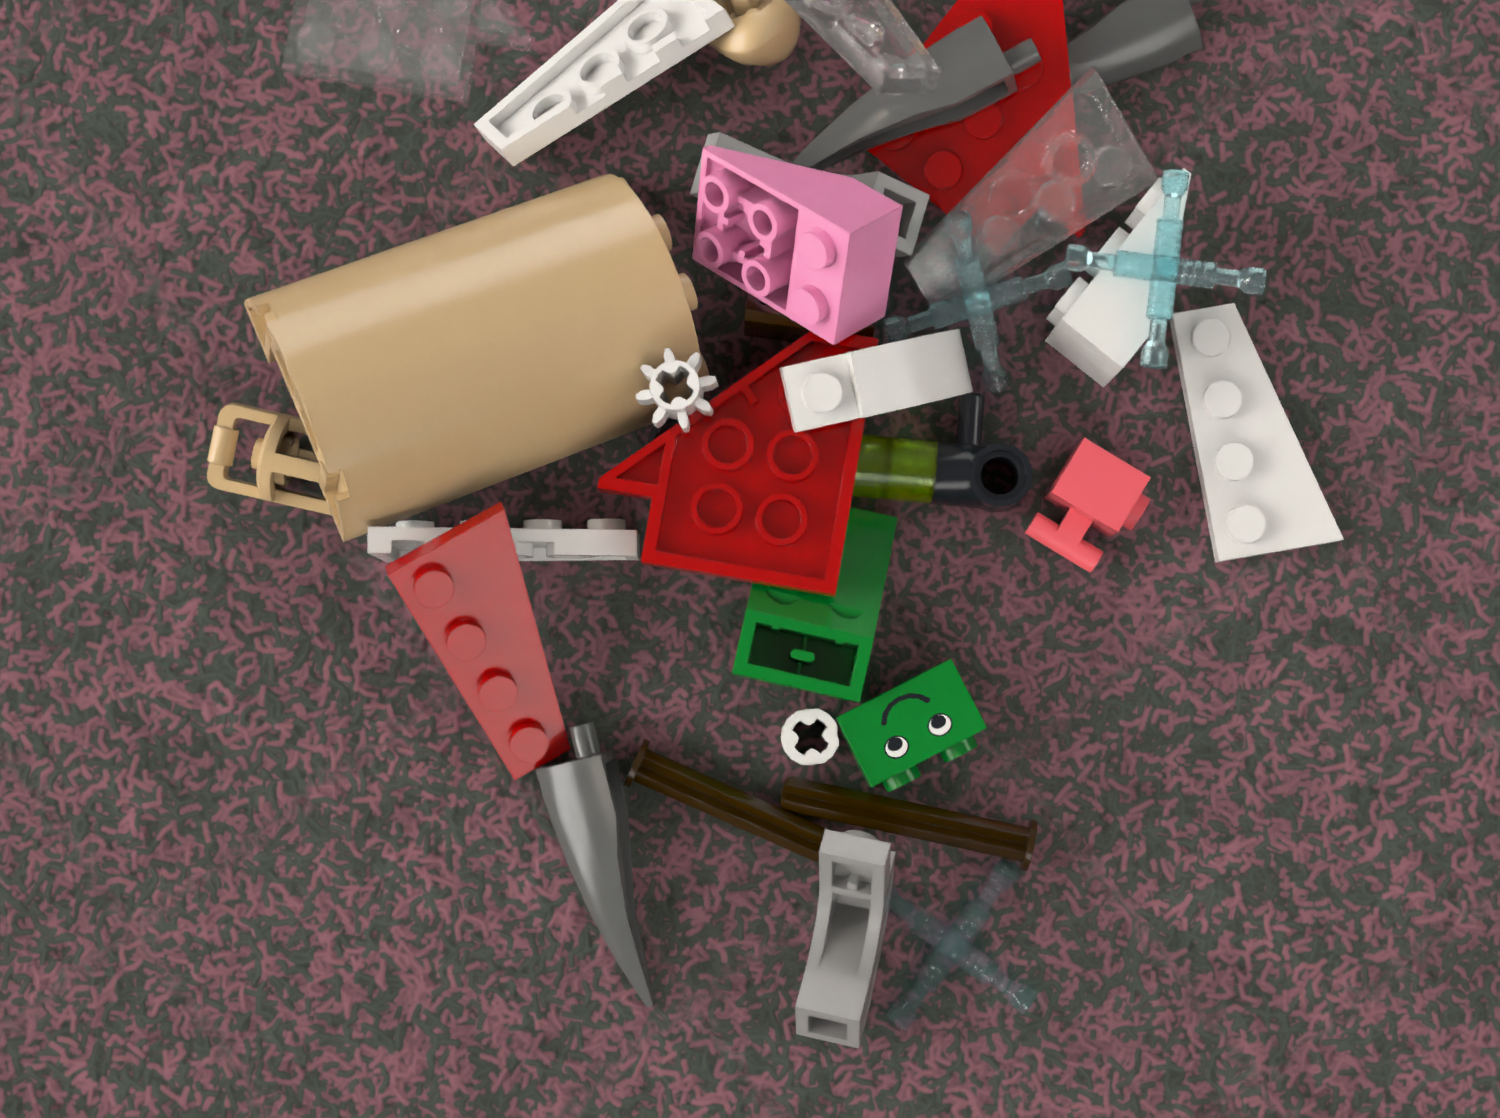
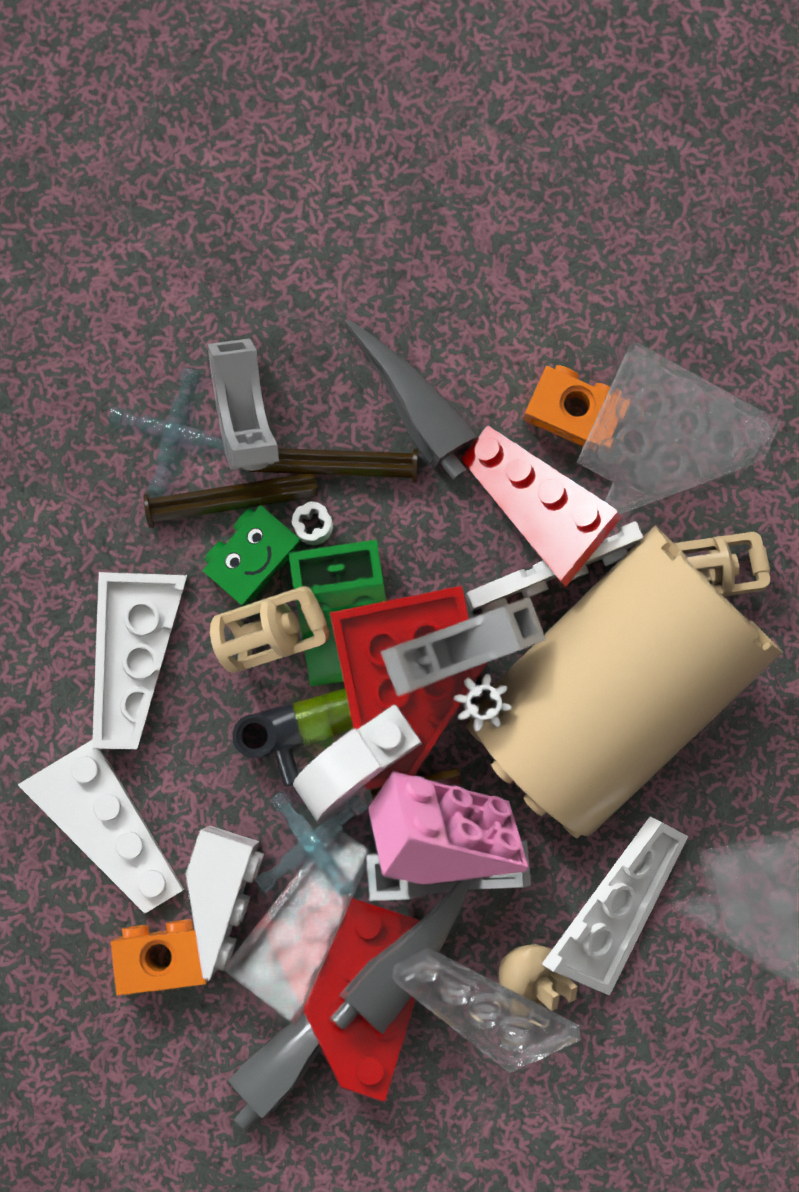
camera: 160 degrees right, 0 degrees up
(270, 667) = (670, 432): none -> clear wing
(422, 768) = (547, 404): none -> orange brick
(673, 472) = (463, 646): none -> light grey arch
(912, 605) = (276, 627): none -> tan piece
(1096, 493) = (189, 751): coral brick -> none
(1119, 671) = (131, 642): none -> white wing
(1165, 269) = (196, 905): clear light blue piece -> none
(1270, 225) = (138, 973): none -> orange brick

